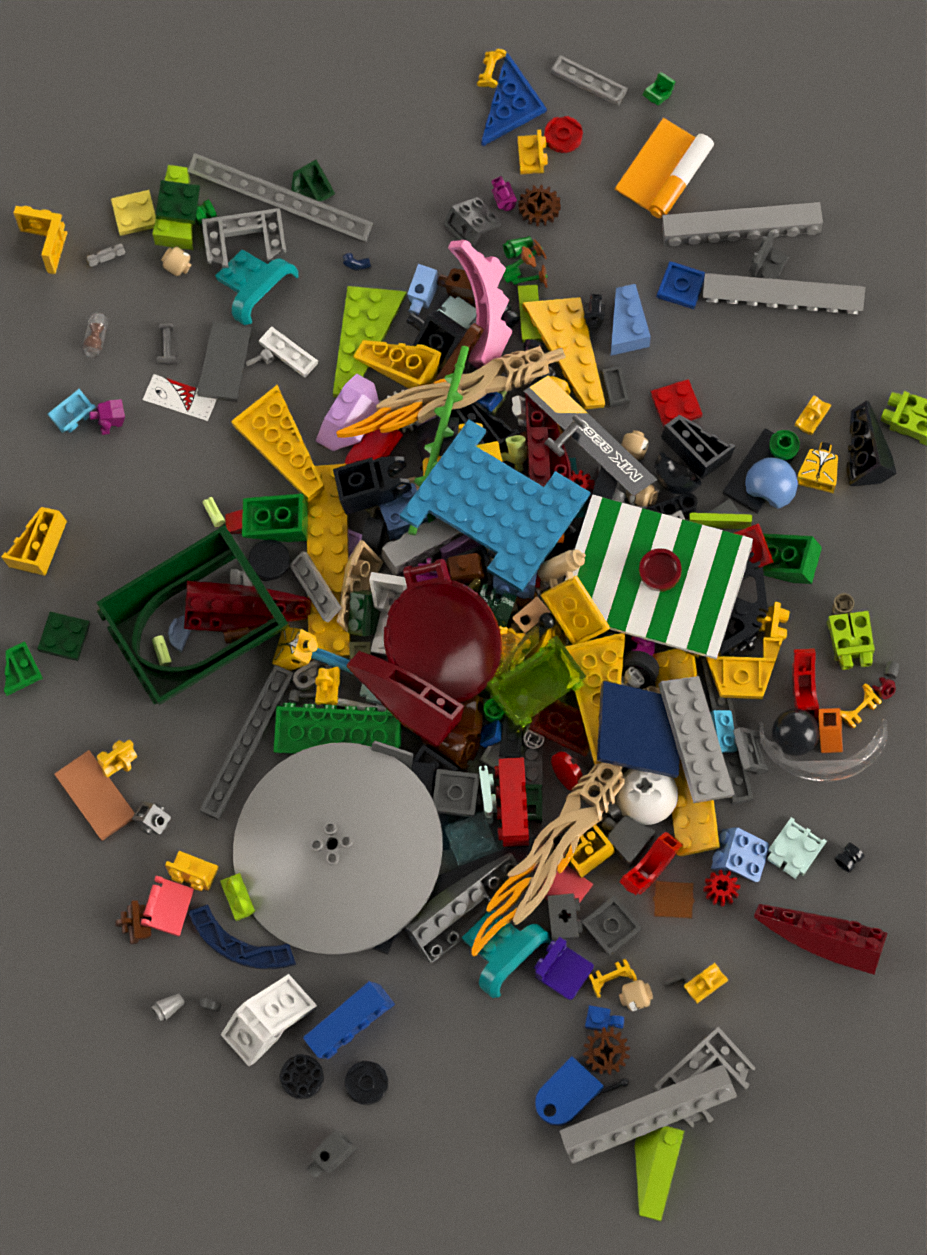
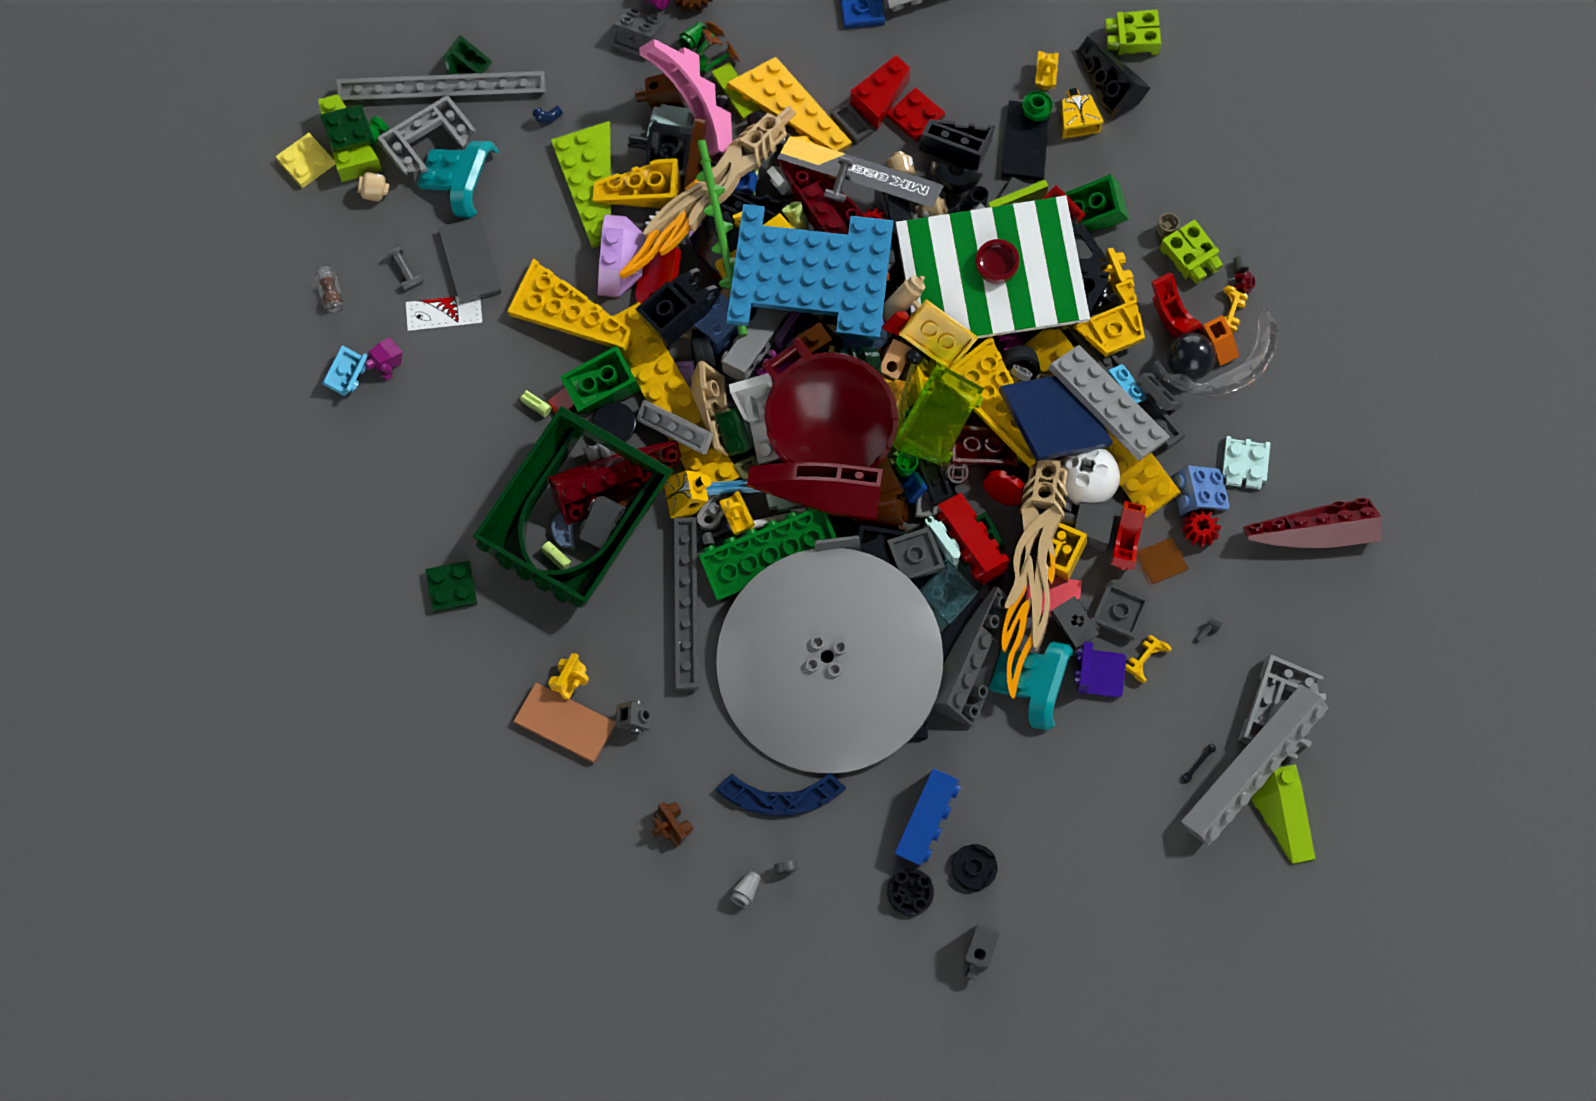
camera: 30 degrees left, 0 degrees up
(20, 669) = (425, 636): green wing -> none
(38, 543) = (379, 509): yellow wedge -> none
(46, 224) = (225, 206): yellow bracket -> none
(105, 255) = (298, 211): light grey axle -> none
(167, 906) = (694, 793): coral piece -> none
(192, 870) = (699, 749): yellow bracket -> none
(212, 638) = (602, 521): none -> dark grey brick
(237, 896) = (755, 752): lime tile -> none
(265, 355) = (506, 236): light grey hand -> none
(265, 1017) = (849, 854): white bracket -> none
(288, 352) = (527, 224): white plate -> none
(422, 288) = (625, 109): light blue torso -> none
(544, 583) = (896, 322): none -> red slope
(568, 1092) = (1165, 782): blue tile -> none
(594, 311) = (797, 62): black hips -> none
(600, 1017) = (1158, 701): blue plate -> none
(618, 1049) = (1176, 720): reddish brown gear -> none
(629, 322) = (835, 60): medium blue wedge -> none
(636, 995) = (1179, 663): tan head -> none
(655, 368) = (880, 90): none -> red wedge
(705, 983) = (1236, 621): yellow hips -> none
(773, 481) = (1043, 143): medium blue cylinder -> none
(849, 857) = (1299, 447): black wheel -> none

